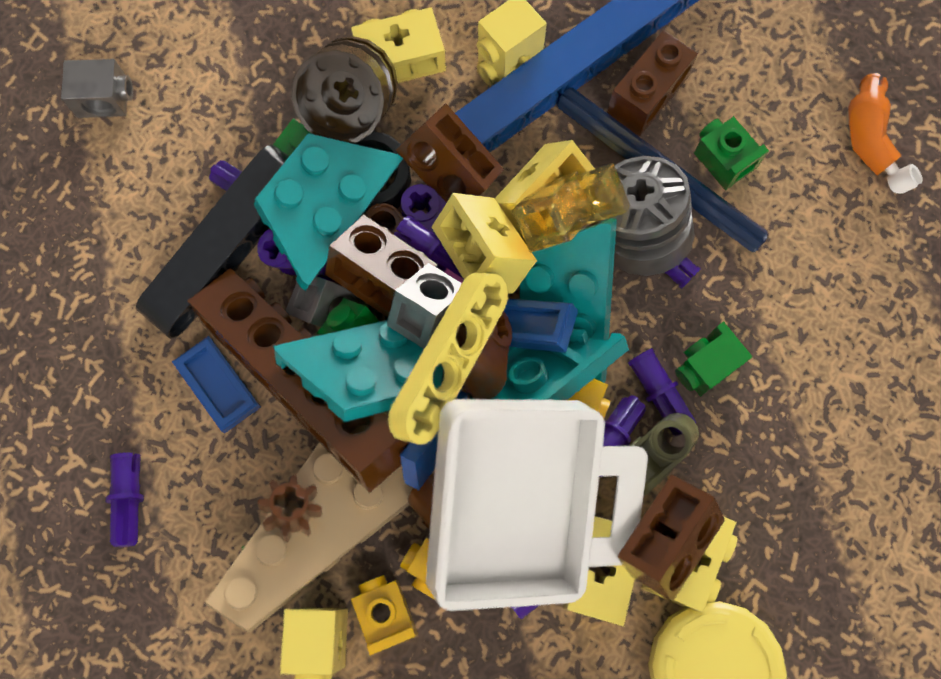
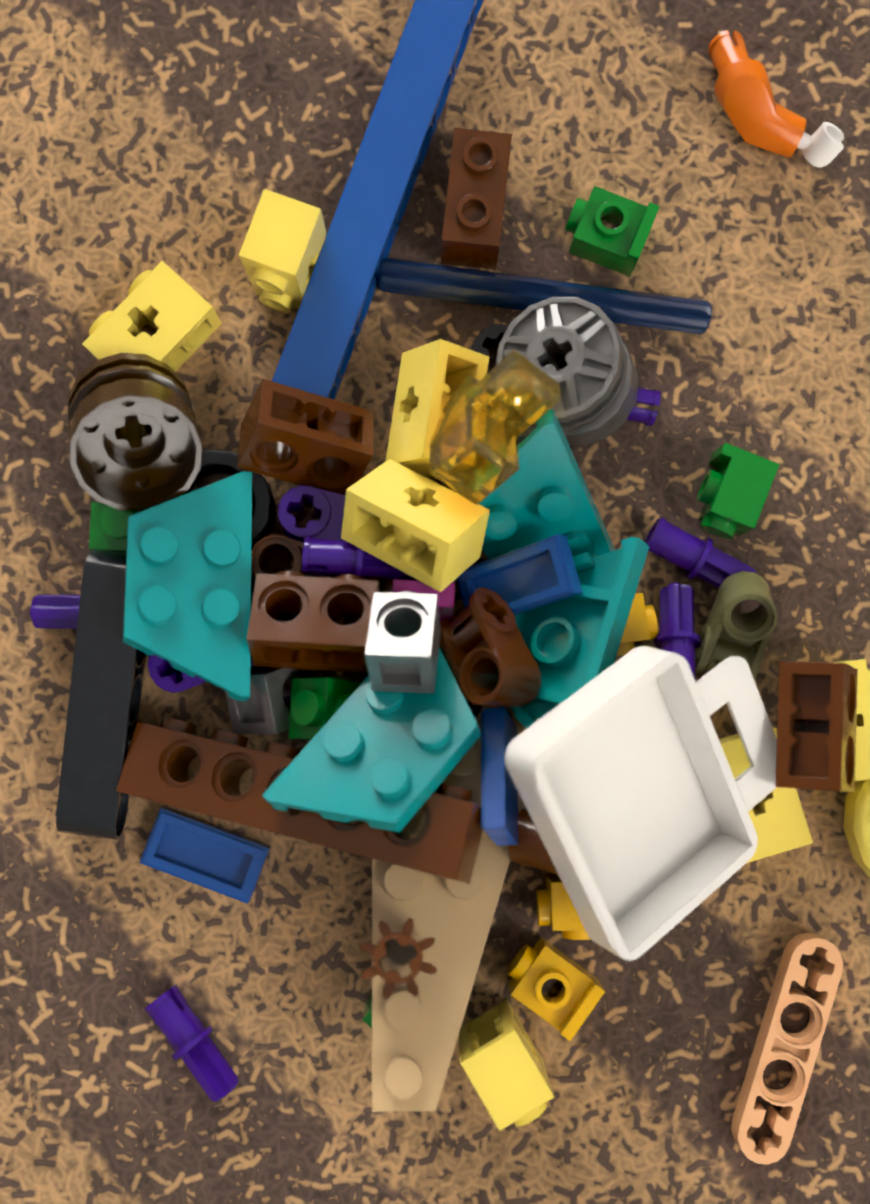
camera: 35 degrees left, 10 degrees up
(479, 307) = (460, 597): light yellow beam -> none

